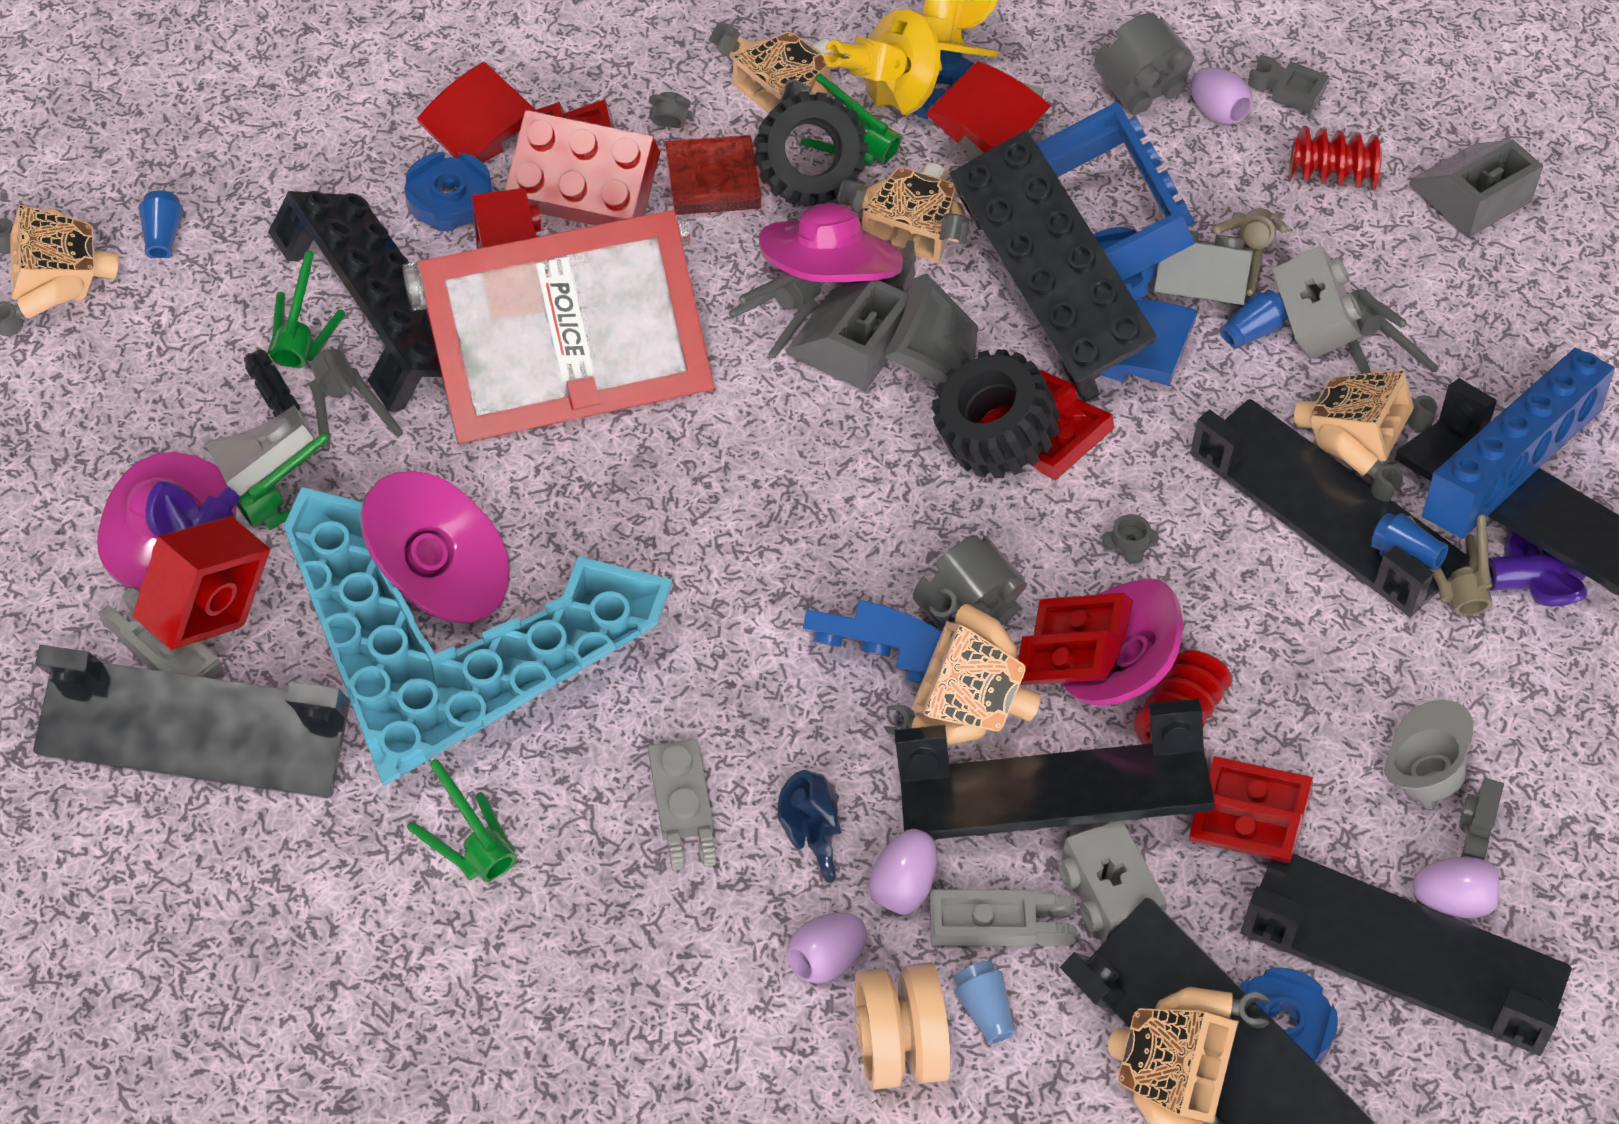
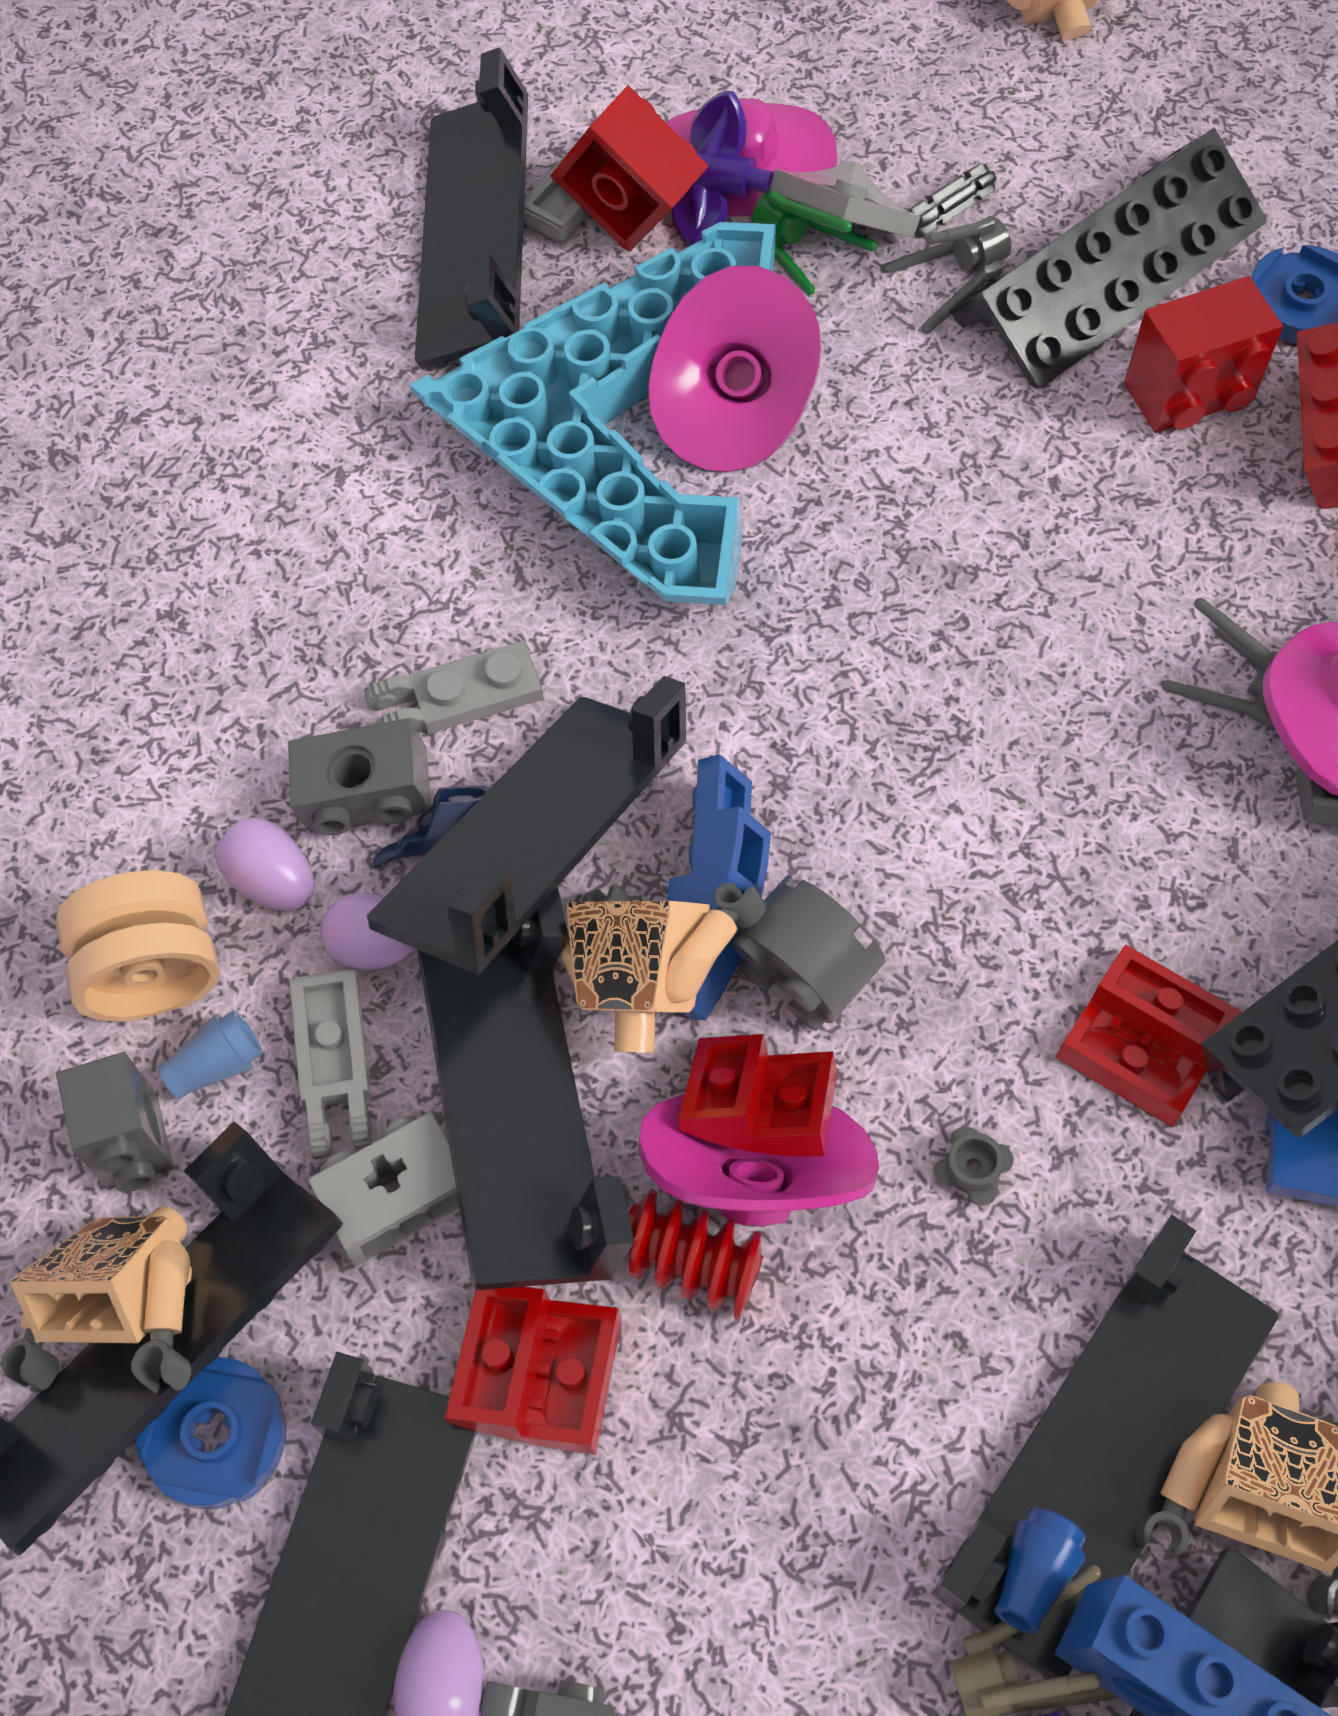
camera: 85 degrees right, 10 degrees up
(160, 221) = (1147, 51): blue cone -> none
(292, 342) = (1017, 194): green plant -> none
(487, 850) = (361, 509): green plant -> none
(563, 325) = (1103, 428): door -> none
(755, 839) = (331, 763): none -> dark grey brick
(848, 737) = (532, 828): none -> black bracket
(851, 331) = (1217, 767): dark grey slope -> none
(932, 332) = (1233, 858): dark grey plate -> none
(978, 389) = (1115, 946): black tyre -> none
(1051, 1049) = (115, 1122): none -> dark grey brick
(1431, 751) = (659, 1620): light grey piece -> none

